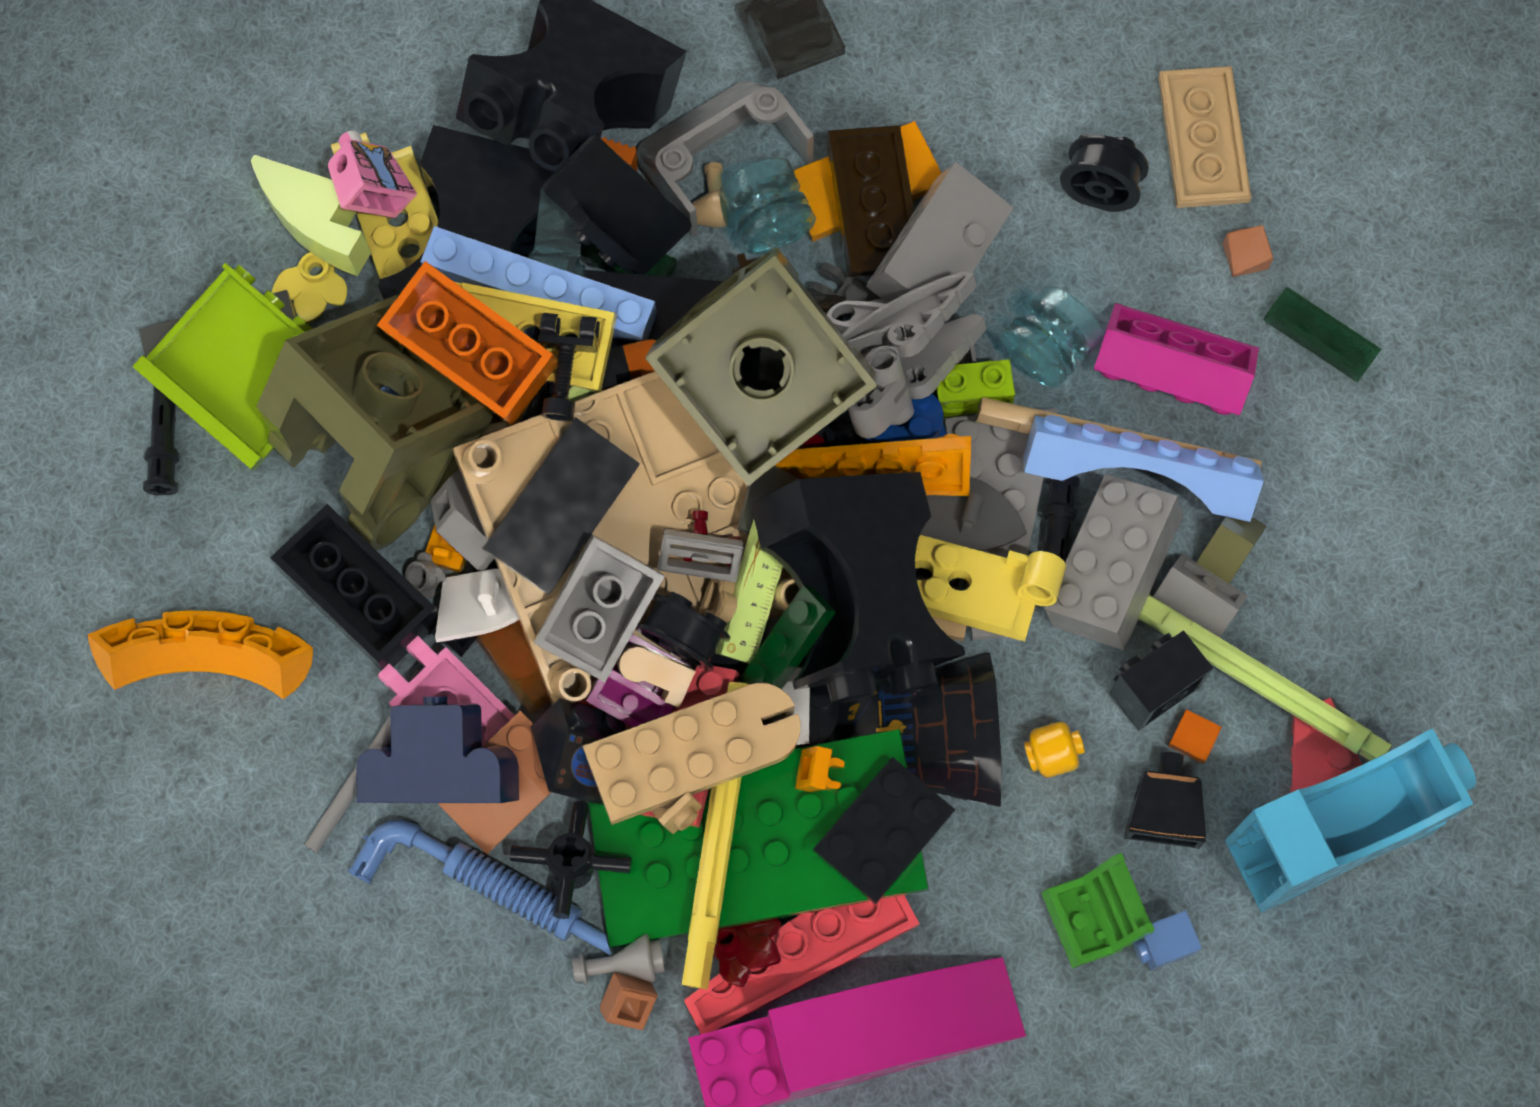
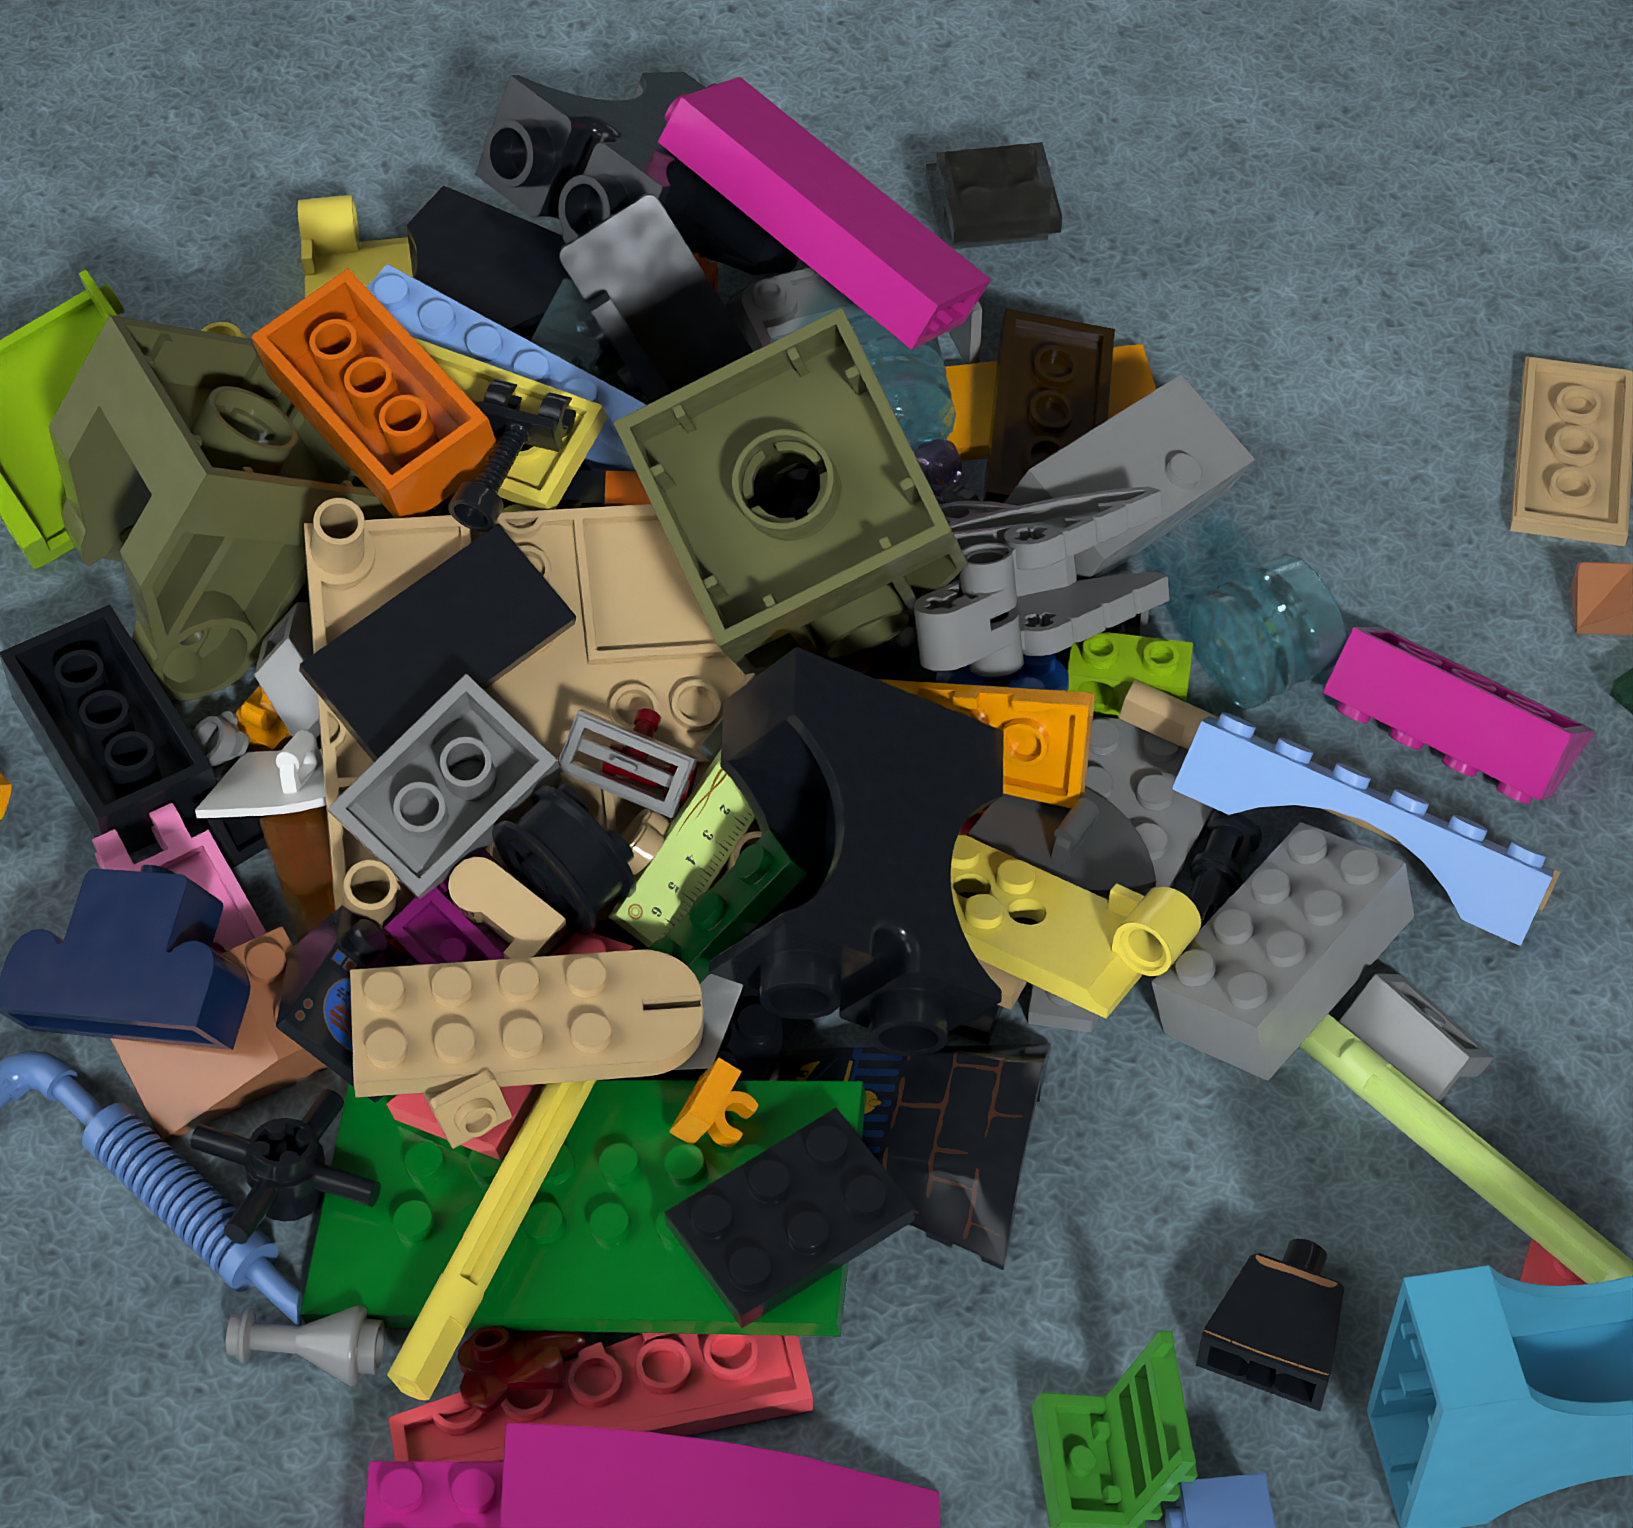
camera: 15 degrees right, 20 degrees down
(313, 214) = (242, 265): yellowish green slope -> none
(369, 178) = (330, 231): bright pink torso -> none
(628, 1001) = (300, 1404): nougat slope -> none
(697, 100) = (823, 210): none -> dark pink brick
(810, 253) = (939, 464): none -> clear purple plate
(1054, 749) = (1113, 1196): yellow head -> none
(1104, 172) = (1406, 446): black wheel -> none
(1160, 679) = (1314, 1126): black brick -> none
(1194, 736) = (1356, 1238): orange tile -> none
(1230, 546) = (1482, 978): olive slope -> none

